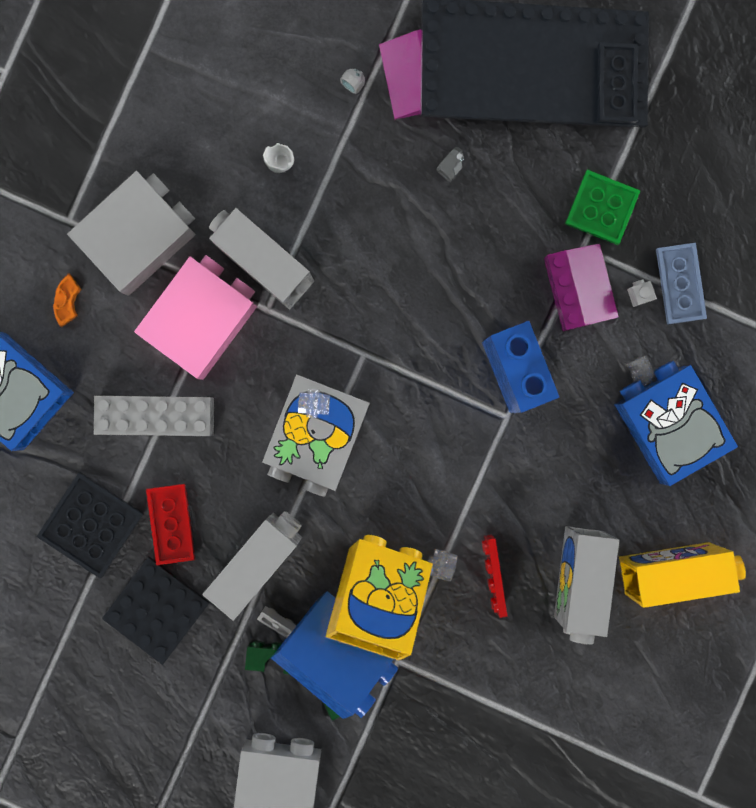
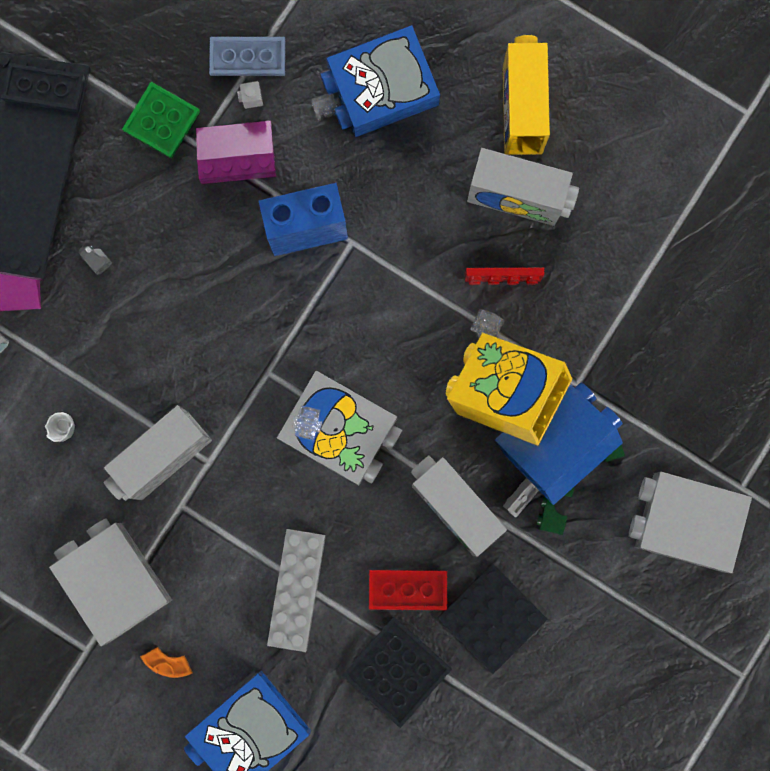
camera: 80 degrees left, 5 degrees down
(197, 316) = (203, 529): bright pink brick -> none

